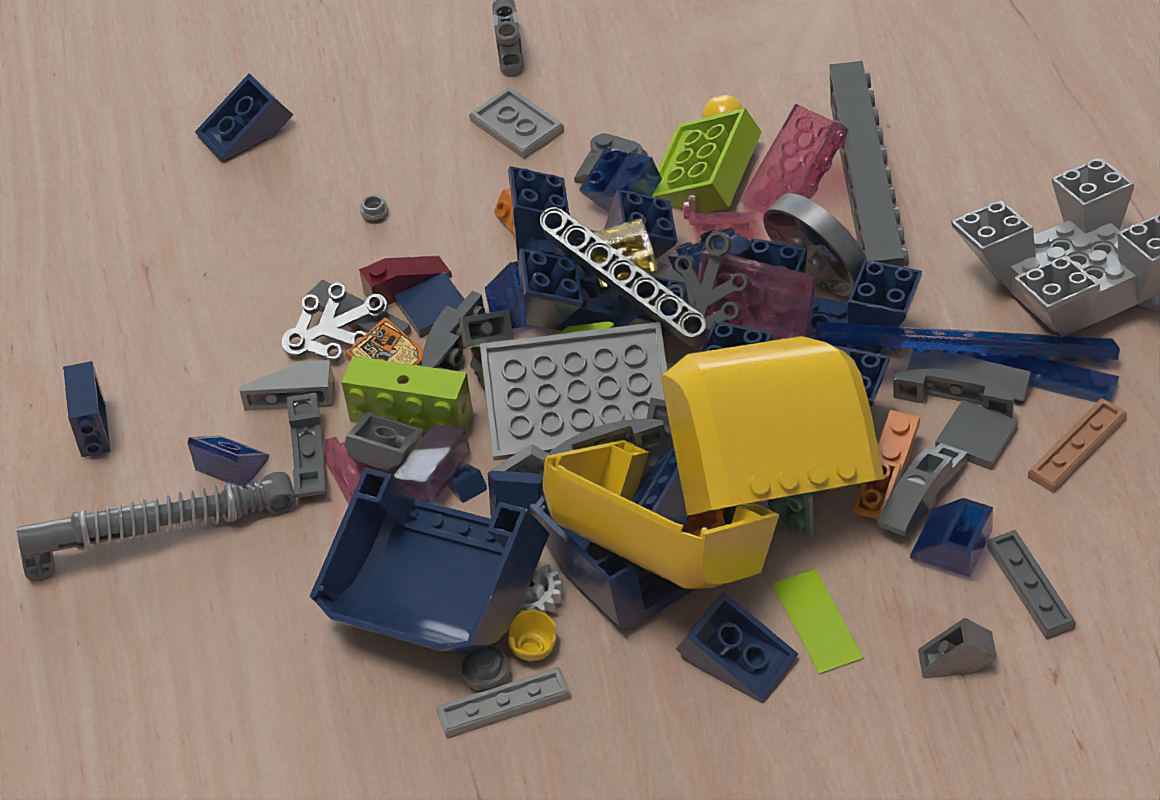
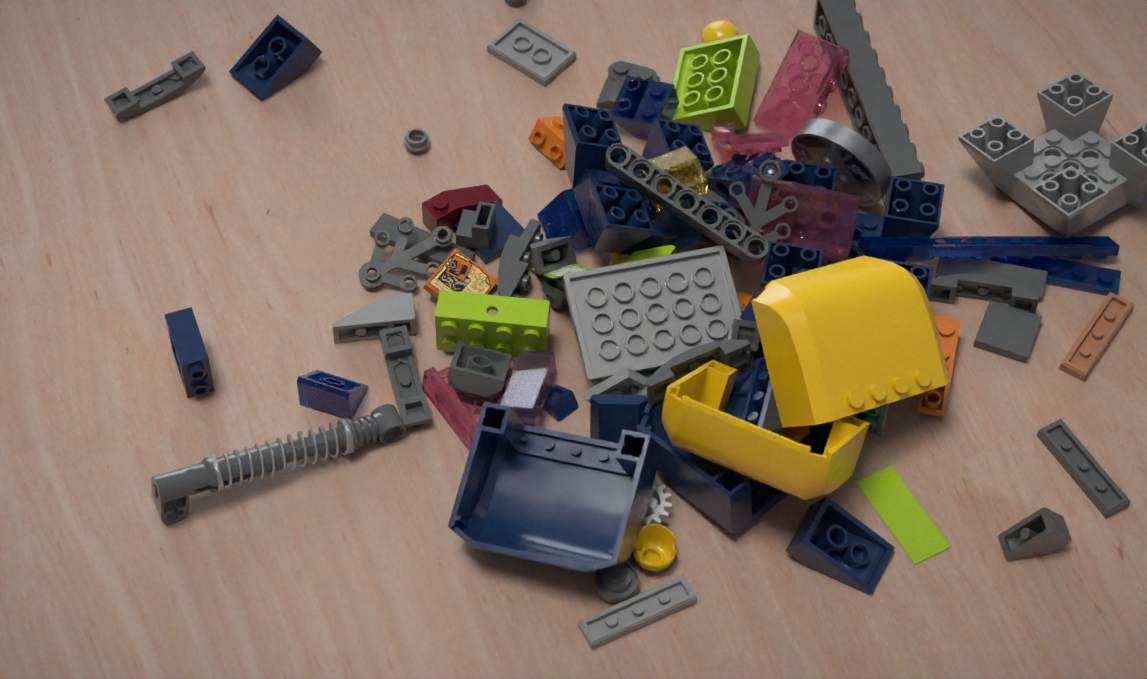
camera: 15 degrees left, 5 degrees up
(116, 149) = (159, 90): none -> dark grey slope
(414, 297) = (477, 227): none -> dark grey piece
(919, 486) = (972, 385): dark grey slope -> none
(955, 536) = (1010, 428): clear blue slope -> none

